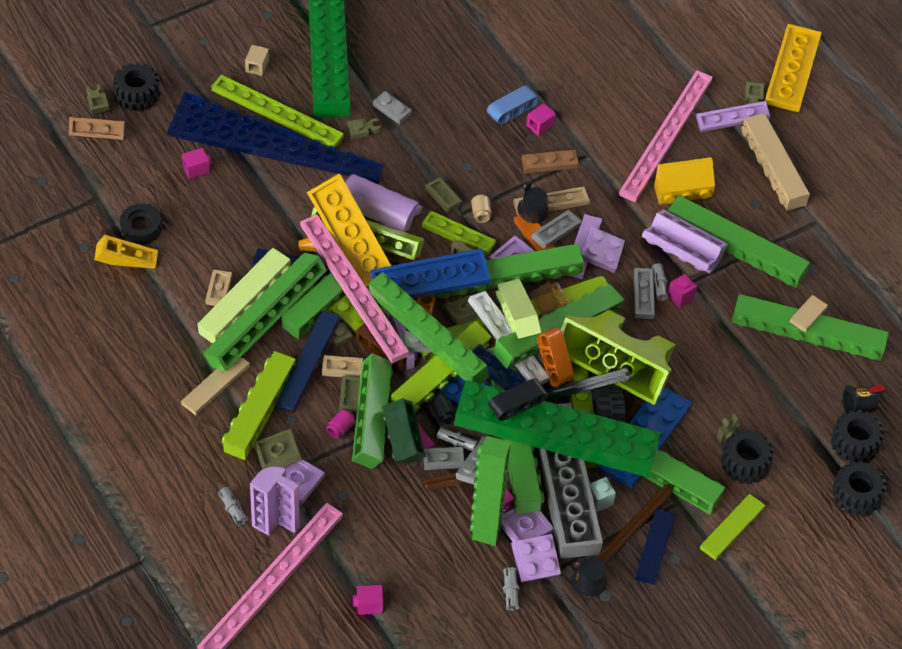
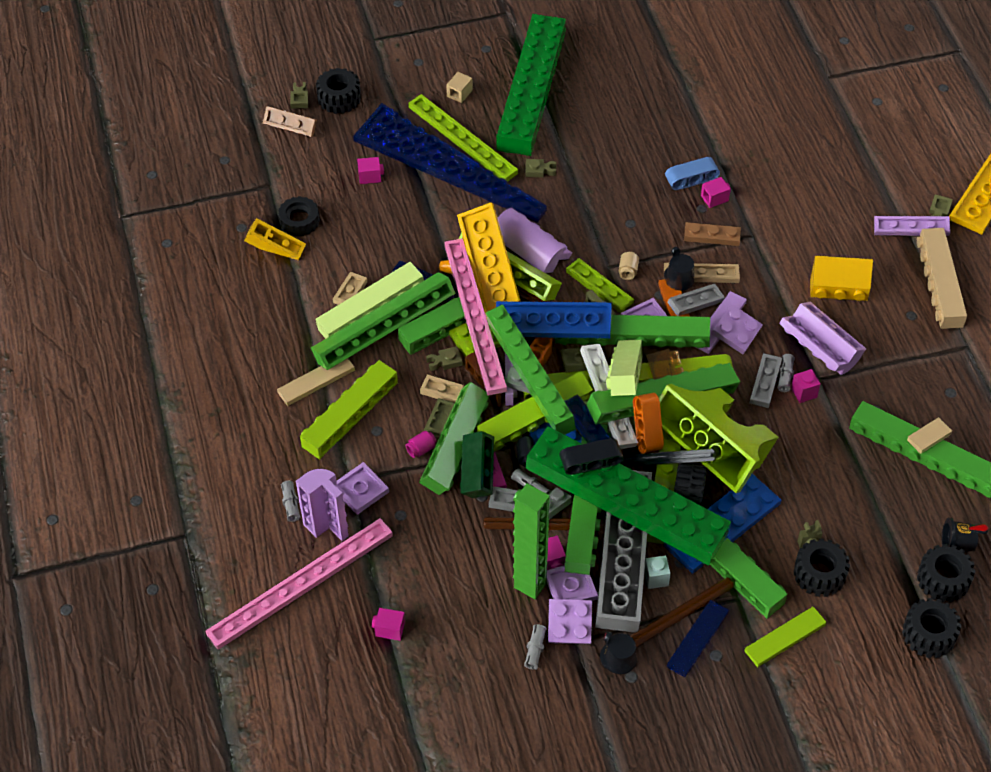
camera: 20 degrees right, 0 degrees up
(278, 450) = (351, 456): olive tile -> none
(308, 362) = (409, 377): dark blue tile -> none
(392, 107) = (574, 154): light grey plate -> none
(443, 195) = (595, 245): olive plate -> none
(665, 136) = (836, 231): bright pink plate -> none
(743, 243) = (884, 352): bright green brick -> none

